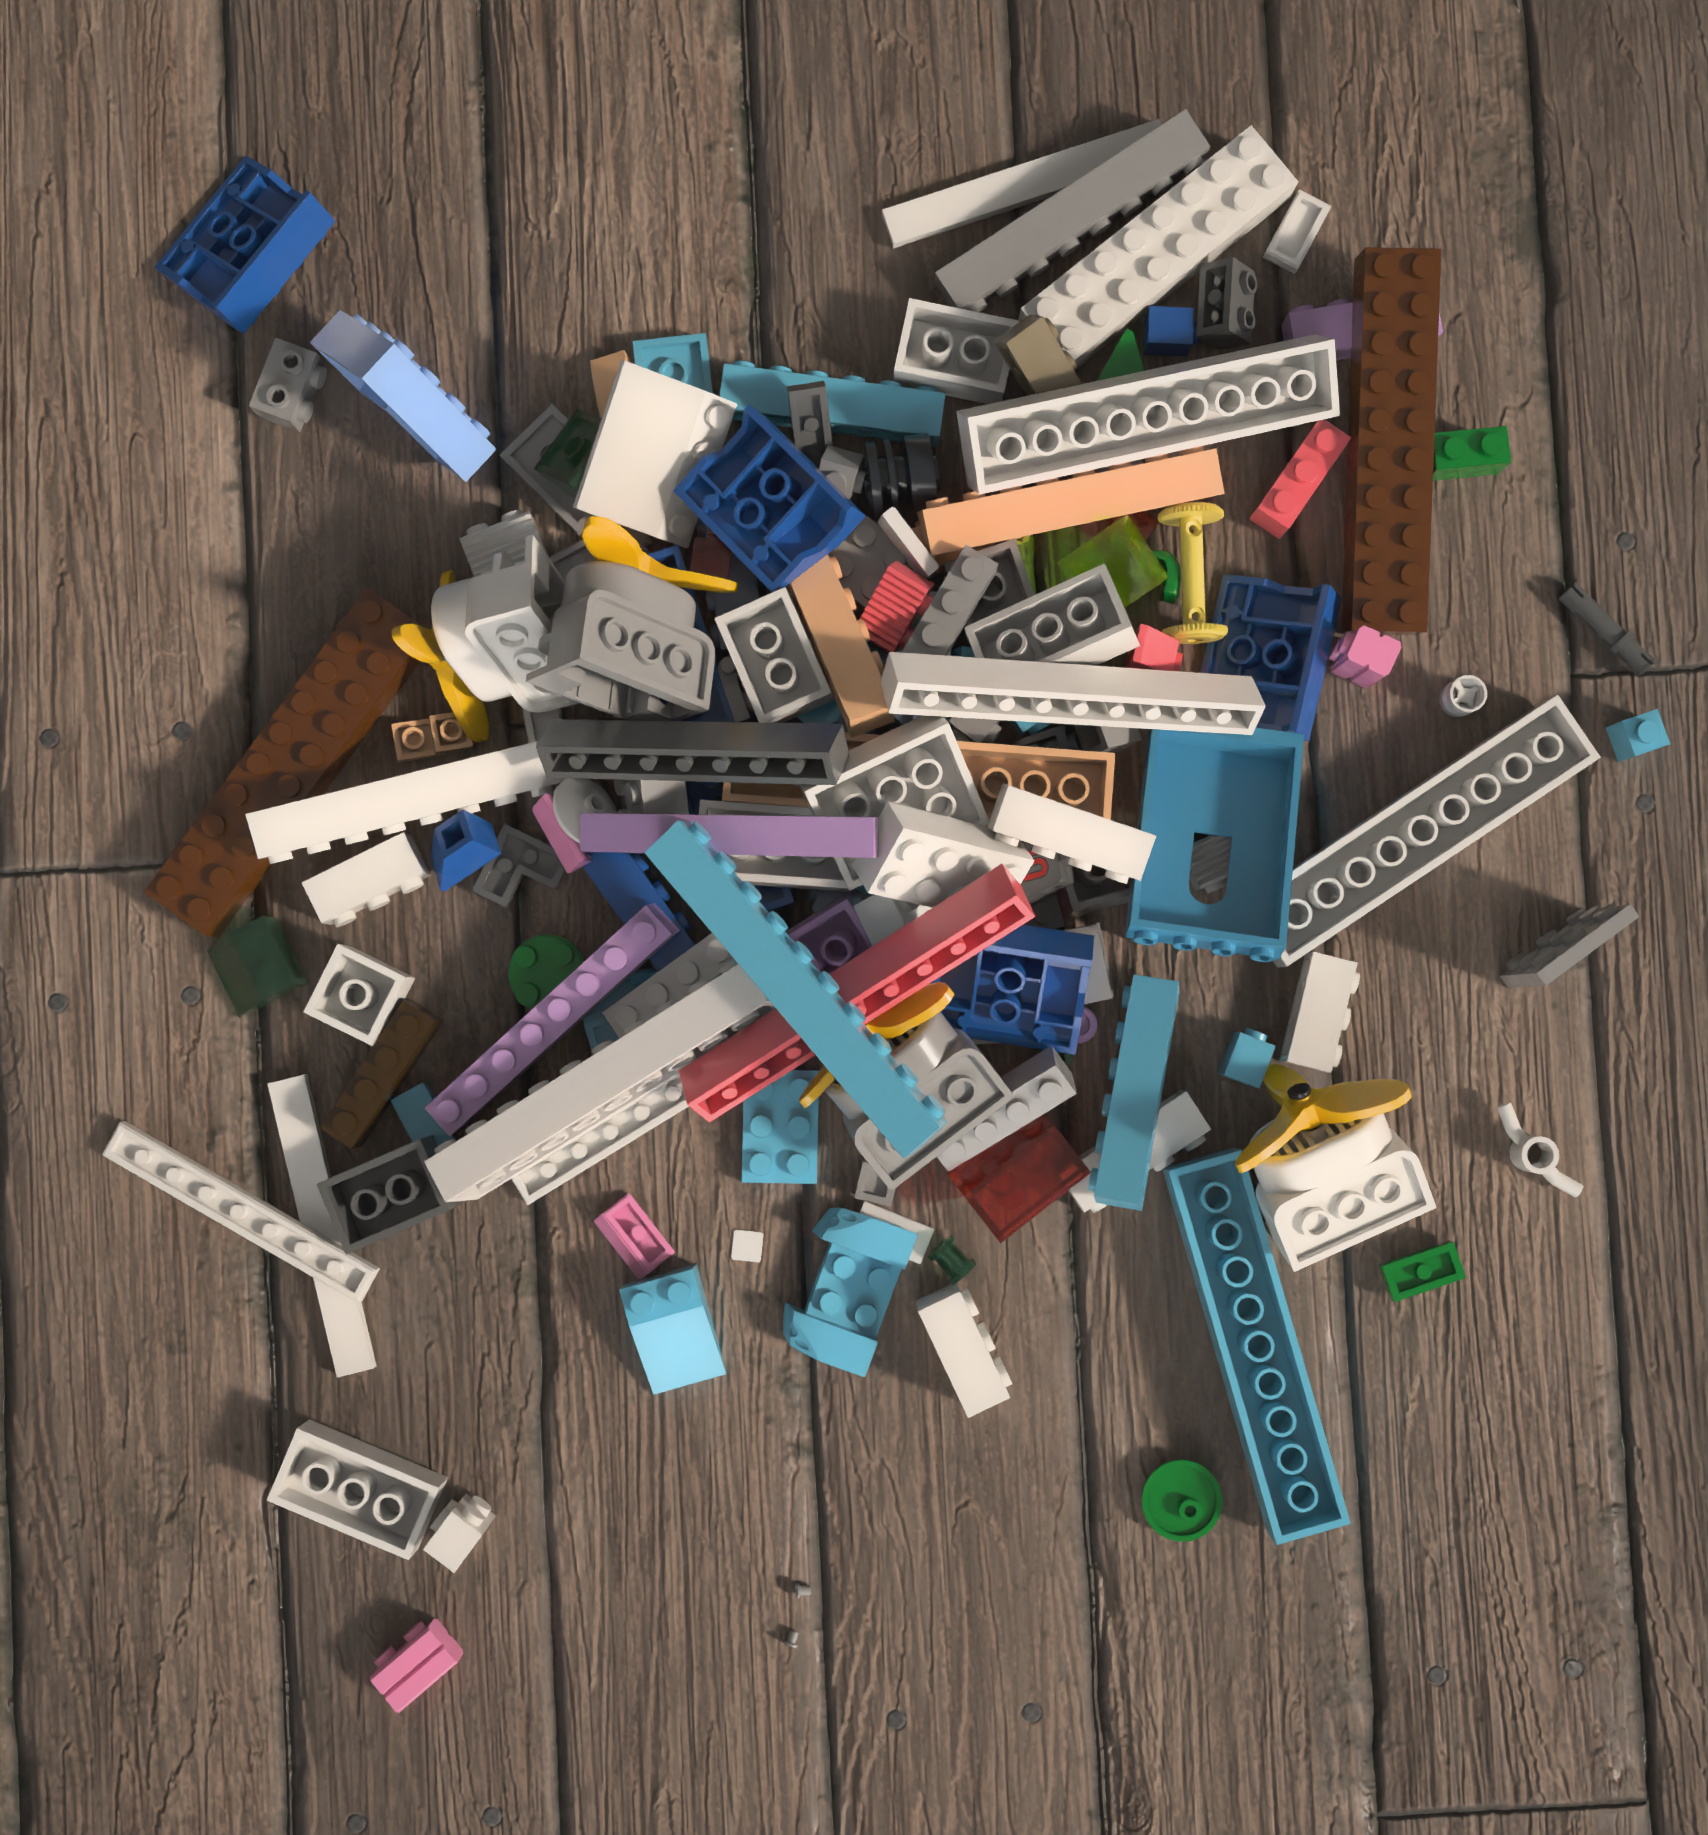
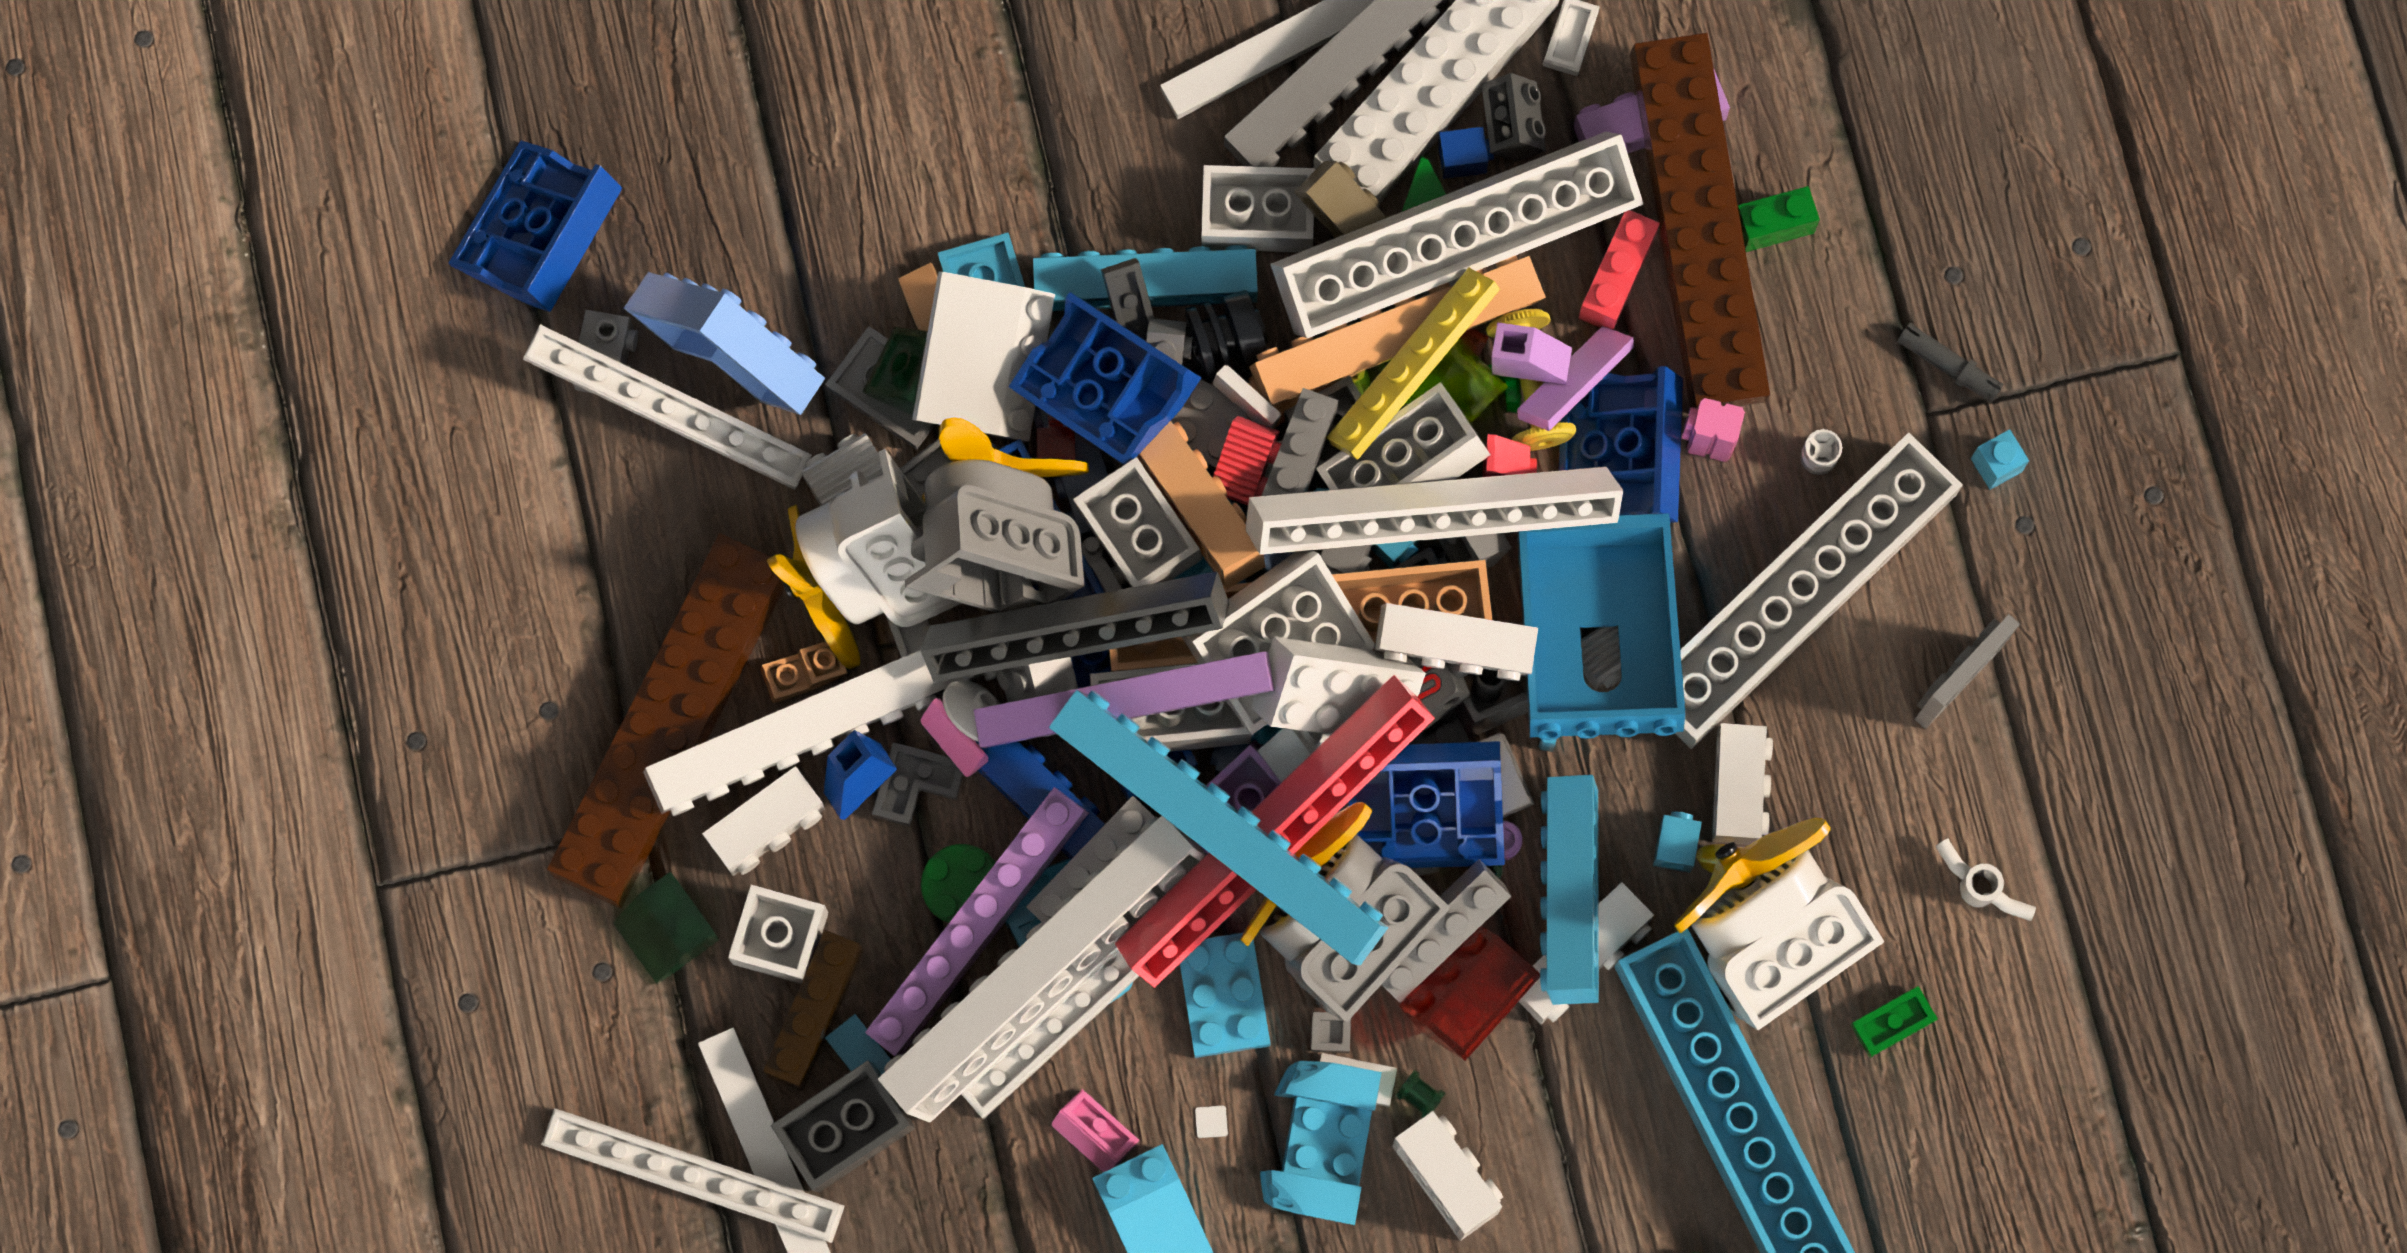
camera: 10 degrees left, 10 degrees down
(336, 448) = (666, 406): none -> white tile
(1081, 538) = (1413, 363): none -> light yellow plate
(1198, 549) = (1529, 354): none -> lavender slope
(1236, 581) = (1586, 370): none -> lavender tile

